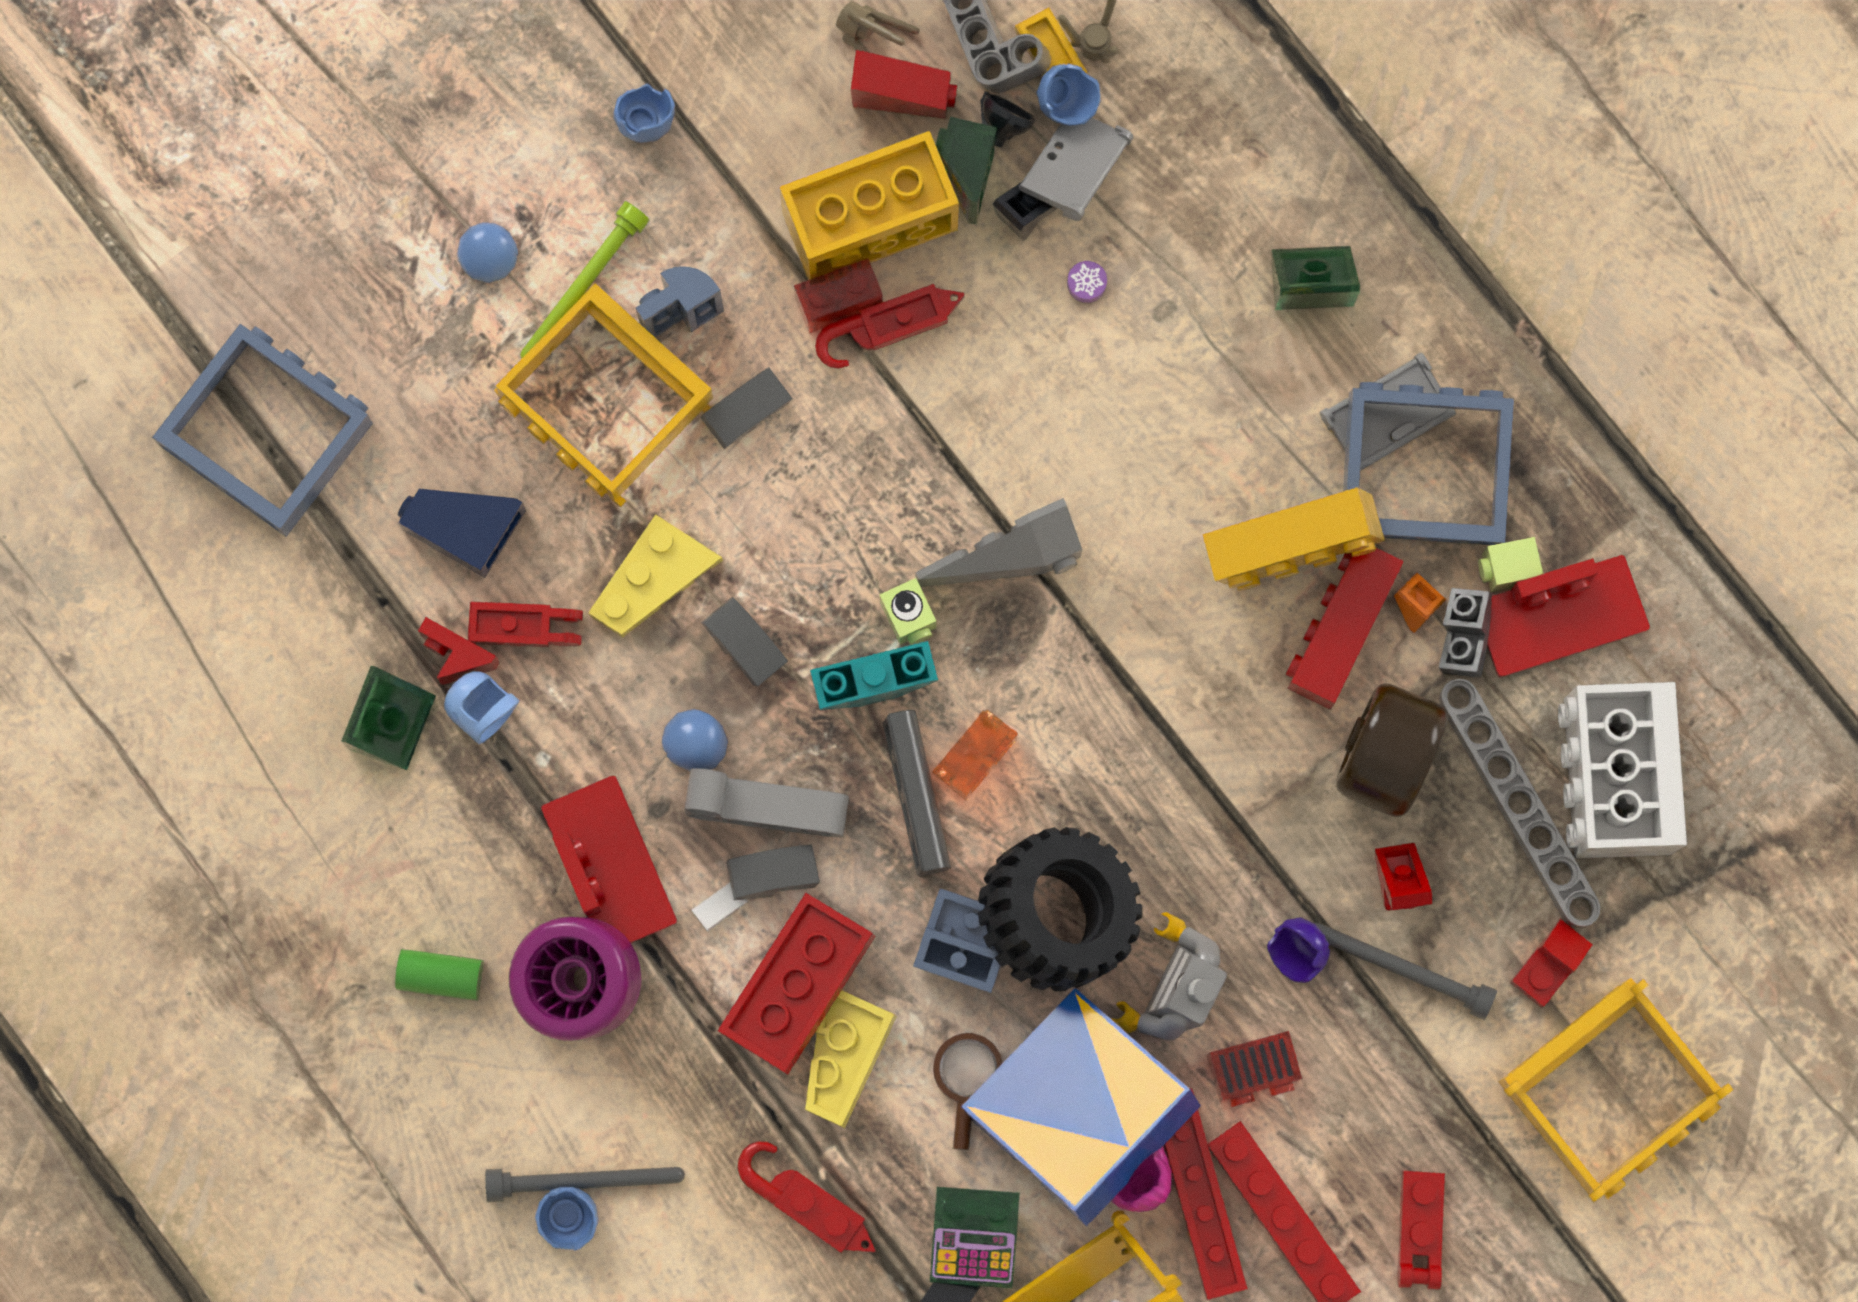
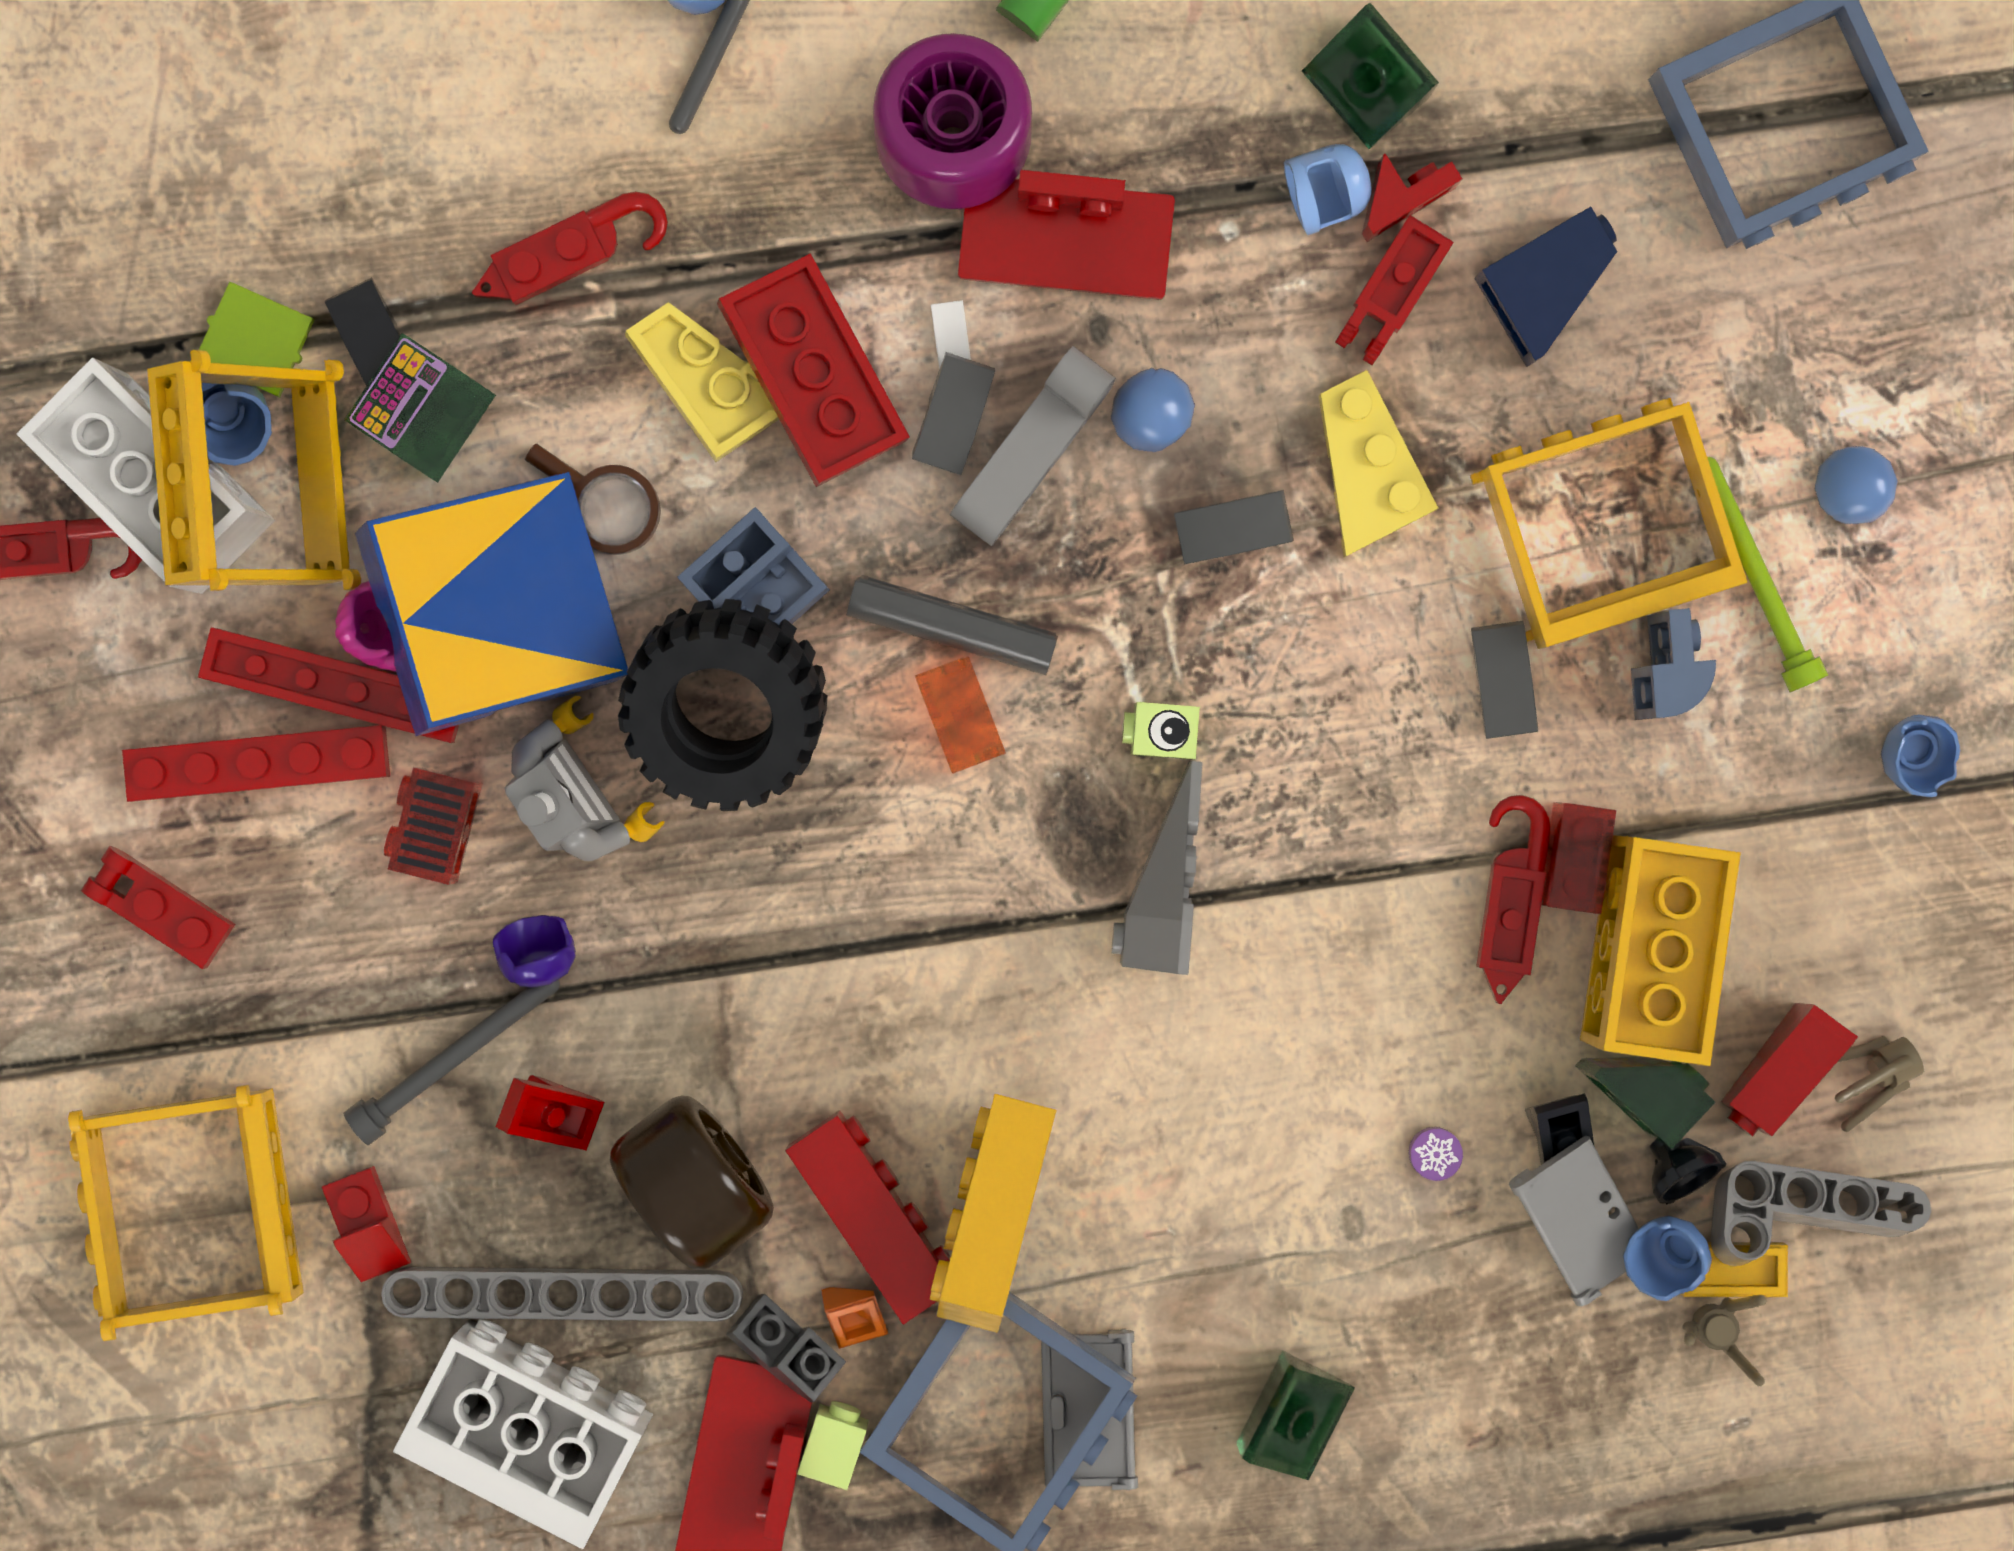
camera: 120 degrees right, 10 degrees up
(874, 677) = (1109, 647): teal slope -> none

